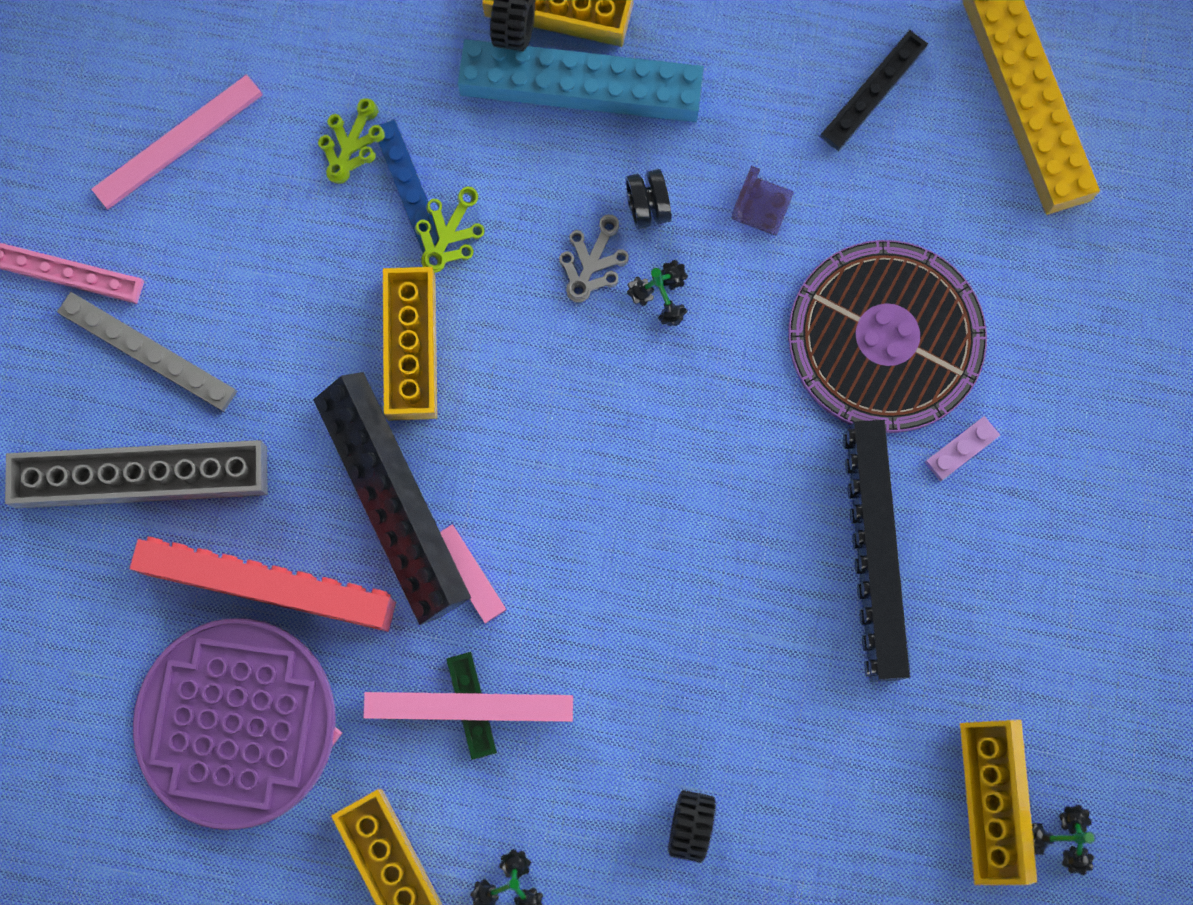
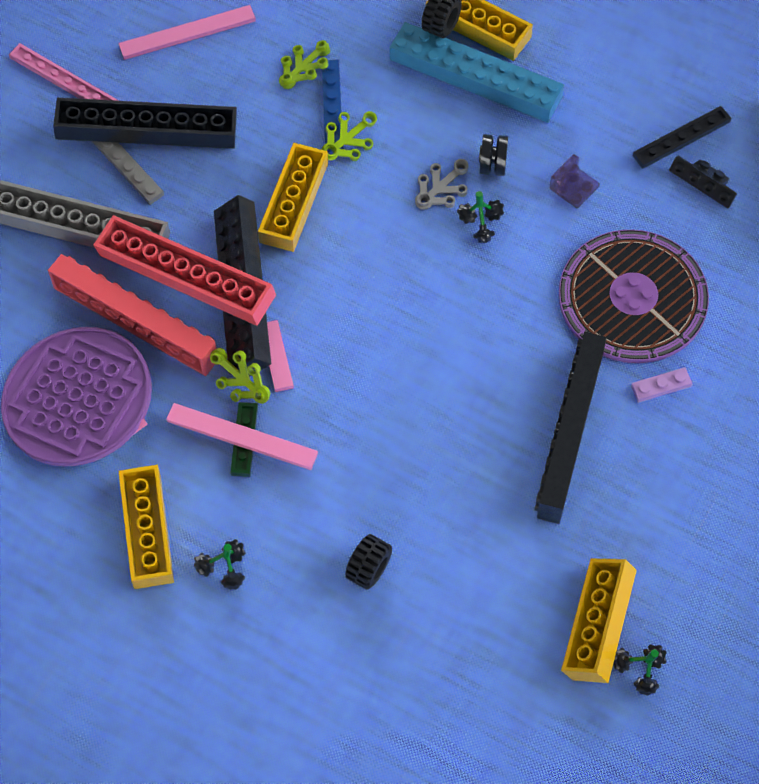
camera: 20 degrees right, 15 degrees down
(173, 302) = (145, 123): none -> black brick
(312, 513) = (185, 270): none -> coral brick
(466, 637) = (258, 392): none -> lime plant
(923, 141) = (705, 179): none -> black bracket

